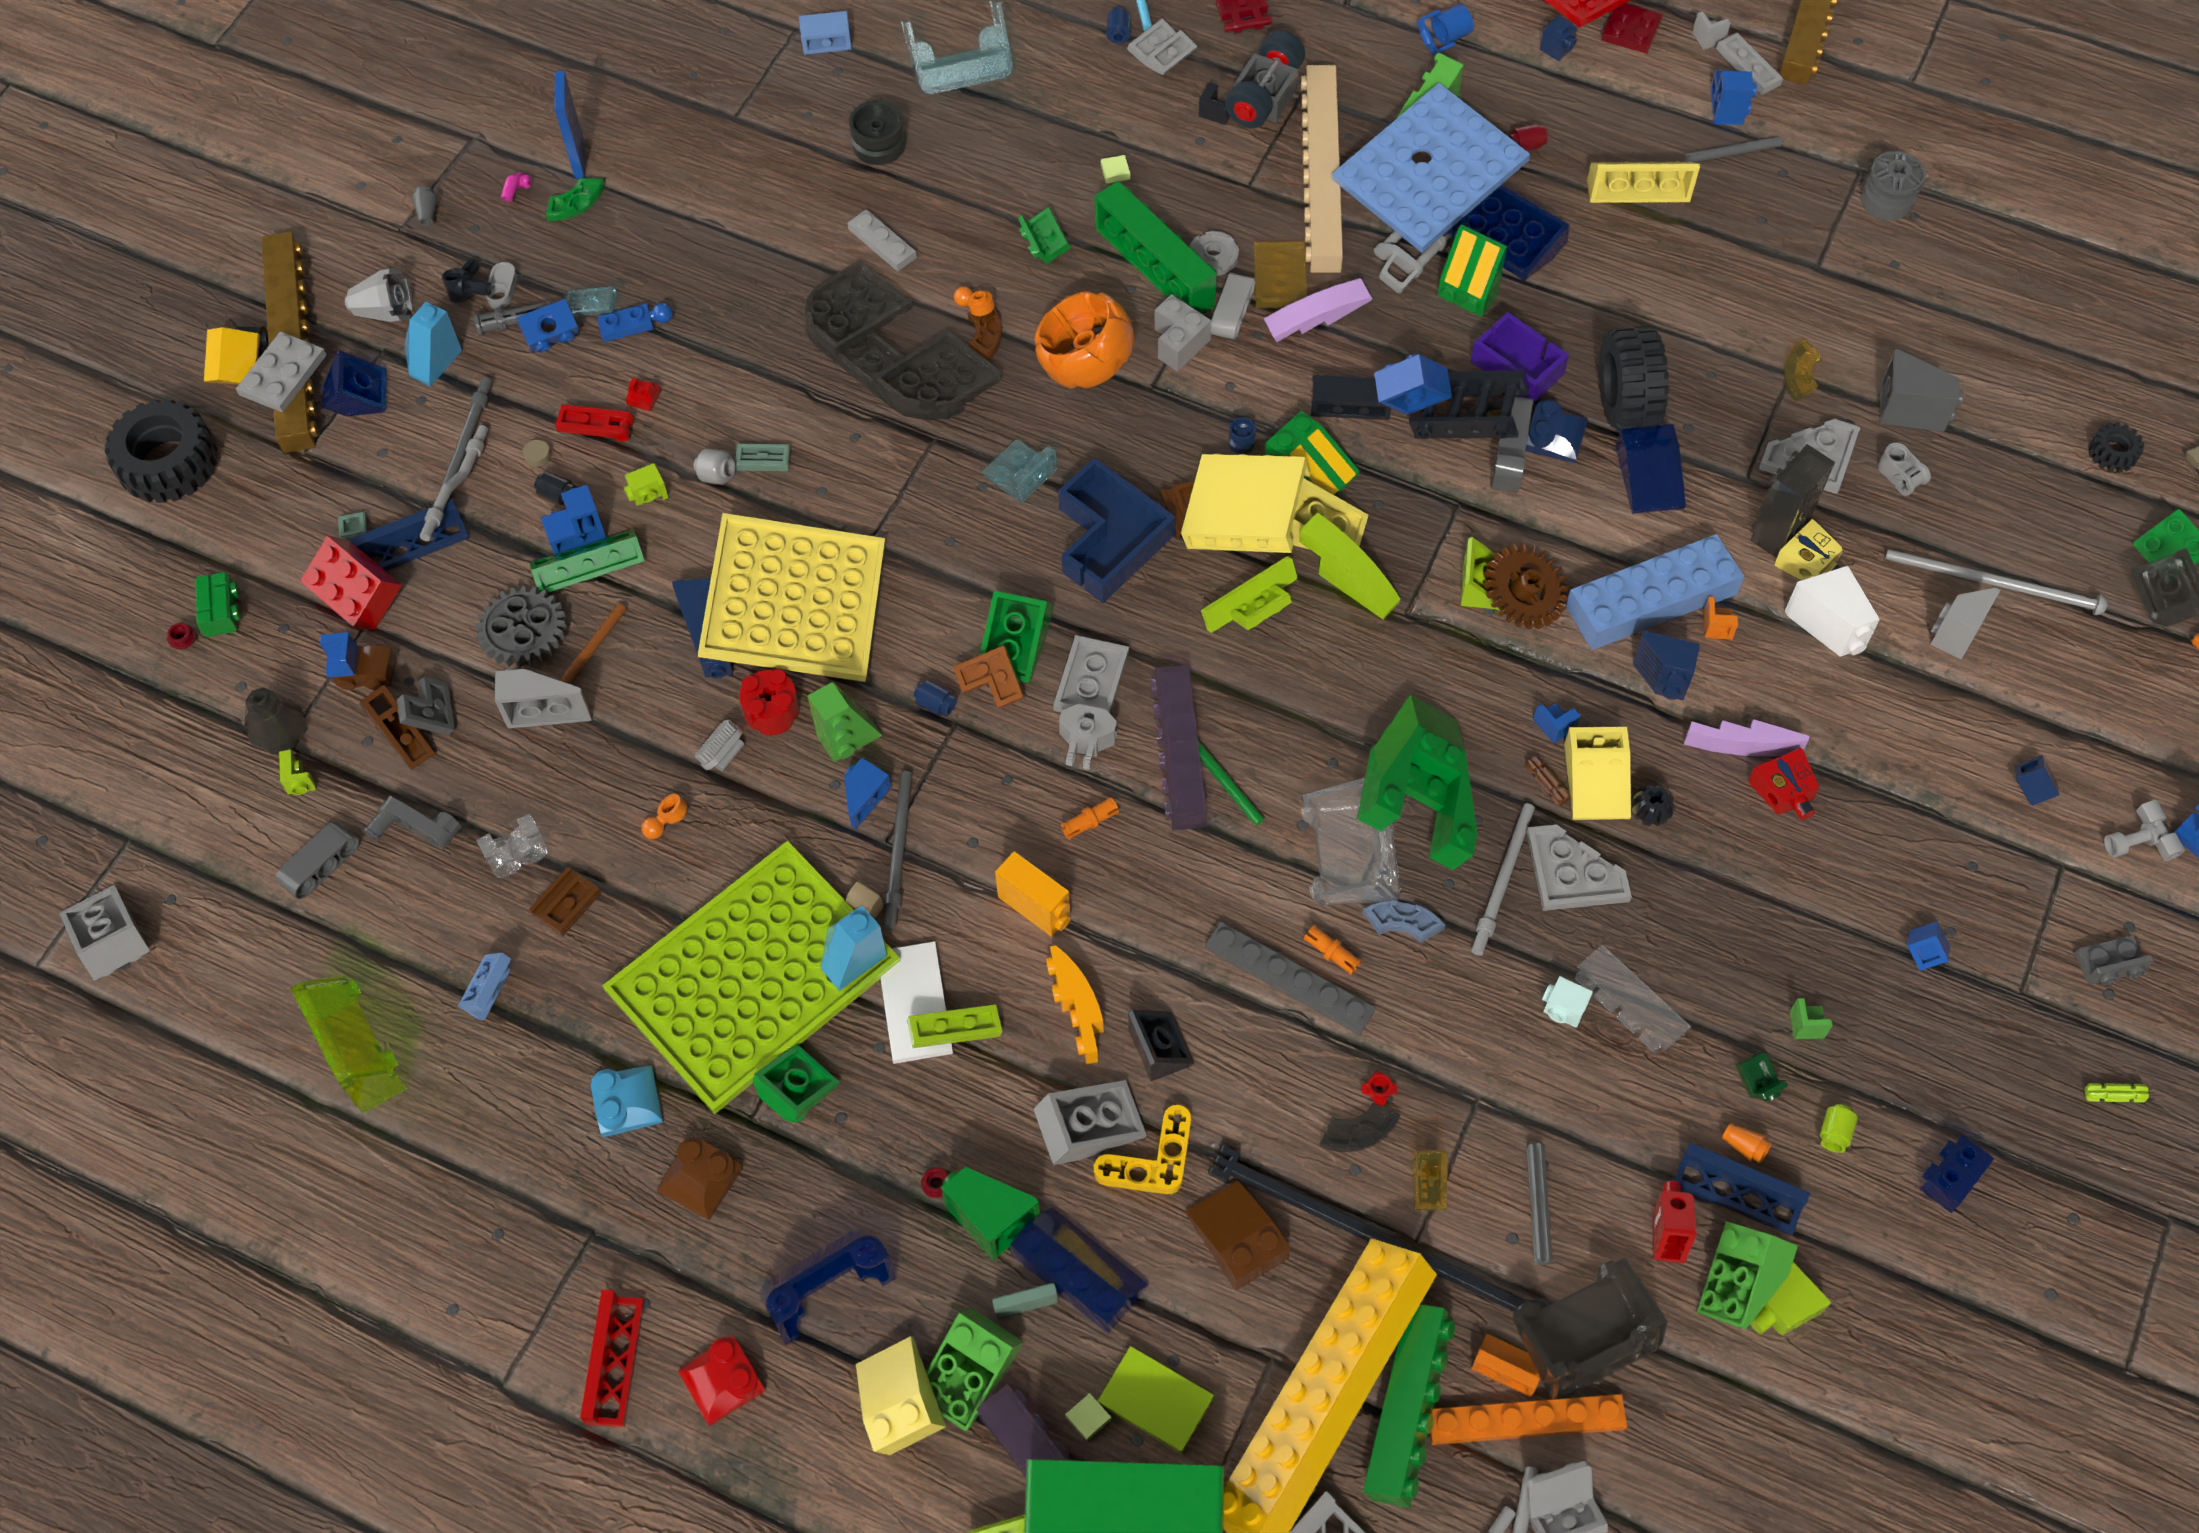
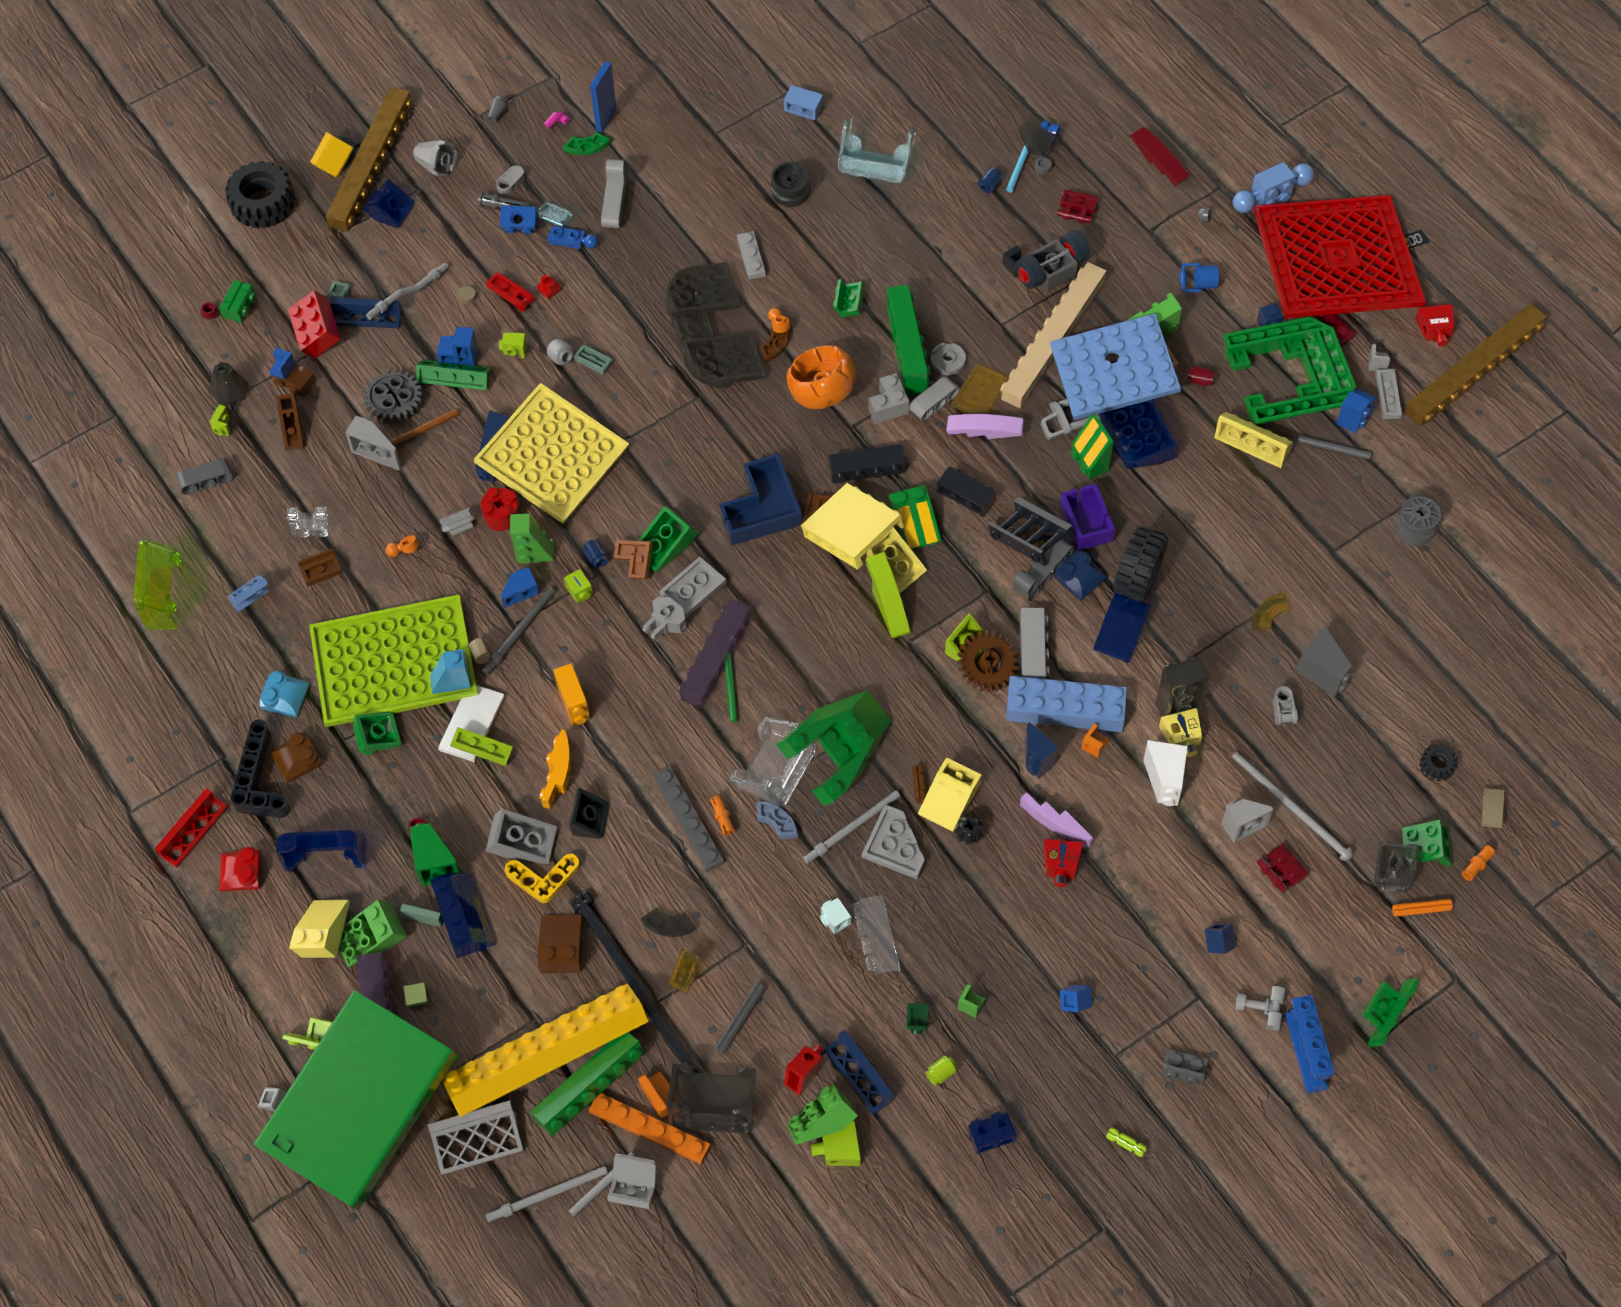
camera: 30 degrees right, 0 degrees up
(104, 933) = (72, 461): light grey slope -> none
(281, 372) = (351, 177): light grey plate -> none
(429, 711) = (313, 422): dark grey plate -> none
(430, 344) = (444, 199): dark azure slope -> none
(436, 832) = (276, 493): dark grey beam -> none
(461, 285) = (486, 168): black axle -> none
(478, 403) = (453, 247): dark grey bar -> none
(551, 486) = (461, 319): black brick -> none
(653, 1236) = (252, 775): none -> black beam
(654, 240) = (614, 193): none -> light grey beam
(941, 750) = (578, 586): none -> lime brick
(1021, 469) = (736, 440): clear light blue bracket -> none
(1089, 818) = (636, 668): orange pin -> none
(1115, 169) = (924, 275): yellowish green tile -> none
(1155, 1399) = (457, 1006): lime tile -> none
(1161, 47) = (1008, 207): light grey slope -> none
(1205, 422) = (866, 464): none -> black brick
(1242, 435) = (882, 483): dark blue wheel -> none
(1253, 599) = (819, 587): lime bracket -> none
(1379, 1080) = (694, 901): red plate -> none
(1412, 384) = (1001, 501): blue brick -> none
(1555, 722) = (950, 750): blue panel -> none
(1562, 539) = (1033, 643): none -> light grey brick
(1644, 53) = (1319, 355): none -> green slope
(1747, 1142) = (883, 1051): orange cone -> none
(1832, 439) = (1235, 670): light grey plate -> none
(2042, 654) = (1286, 865): none -> dark red plate

